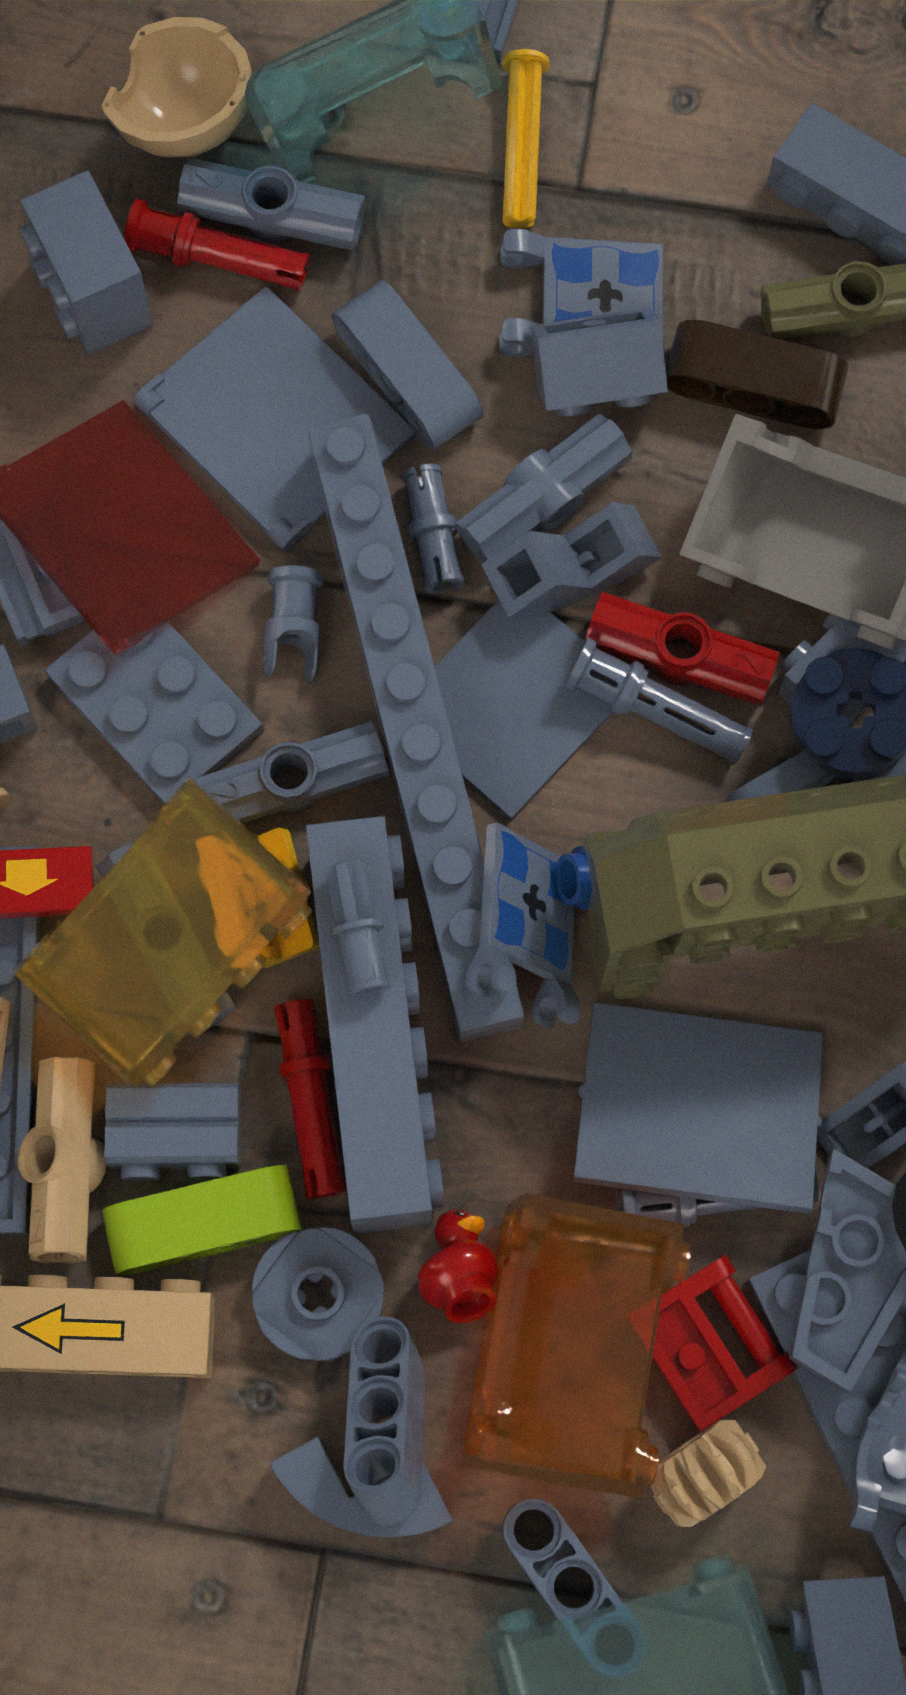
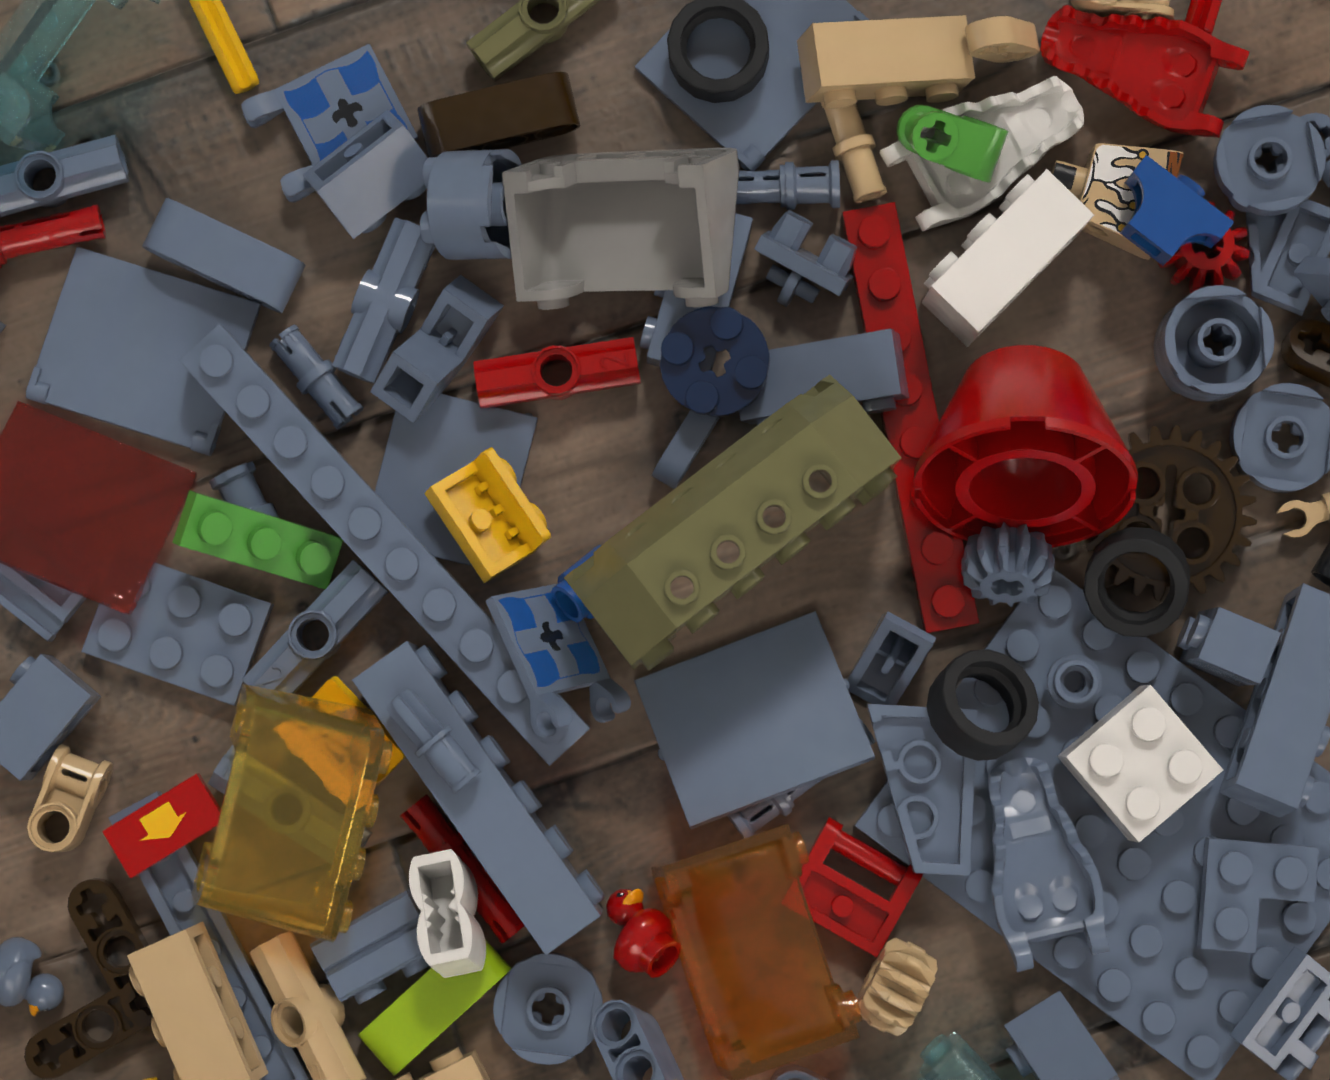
camera: 25 degrees left, 10 degrees up
(269, 1124) = (448, 901): none -> white brick
(286, 647) = (257, 540): none -> bright green plate
(536, 750) = (489, 514): none -> yellow bracket
(681, 432) = (467, 204): none -> sand blue brick
(725, 739) = (535, 427): sand blue pin -> none

